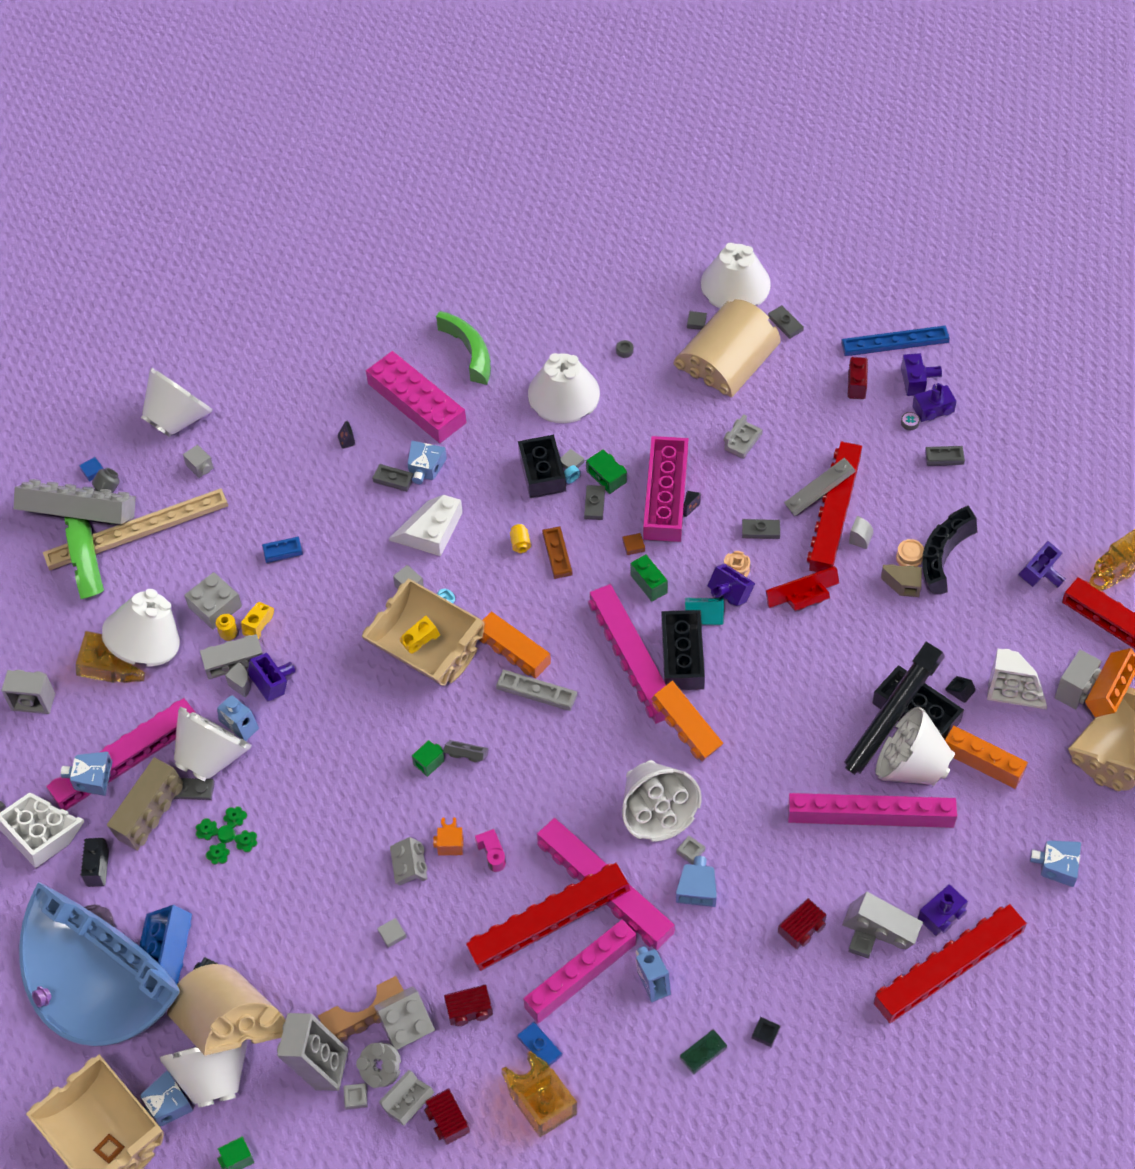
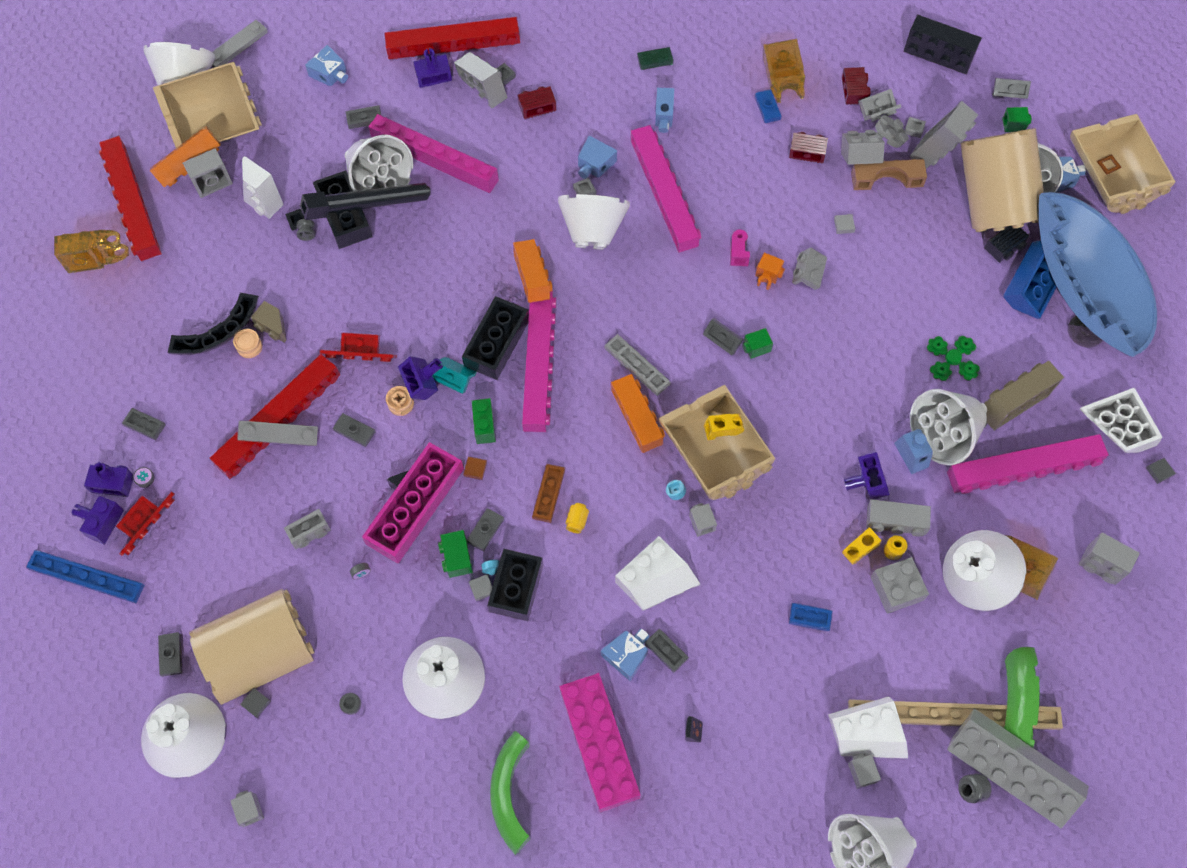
camera: 155 degrees left, 10 degrees up
(41, 996) = (1143, 280): medium lavender plate -> none
(89, 772) = (1067, 440): medium blue torso -> none
(90, 468) = (983, 825): blue tile -> none
(94, 862) = (1076, 374): black brick -> none
(204, 484) = (870, 730): none -> white wedge
(238, 679) = (899, 489): light grey brick -> none
(548, 916) = (721, 172): red brick -> none
(580, 971) = (715, 134): dark pink brick -> none
(653, 260) = (246, 808): none -> light grey brick
(677, 428) = (360, 571): none -> dark grey tile
(766, 1032) = (605, 52): black tile -> none
(857, 378) = (155, 542): dark red brick -> none
(861, 533) = (274, 381): light grey brick -> none
(883, 389) = (138, 518): none -> red bracket
(941, 677) = (305, 230): none -> dark grey wheel
(976, 822) = (362, 117): none -> dark grey plate
(986, 757) = (319, 149): orange brick -> none
(1042, 566) = (153, 279): dark purple brick -> none

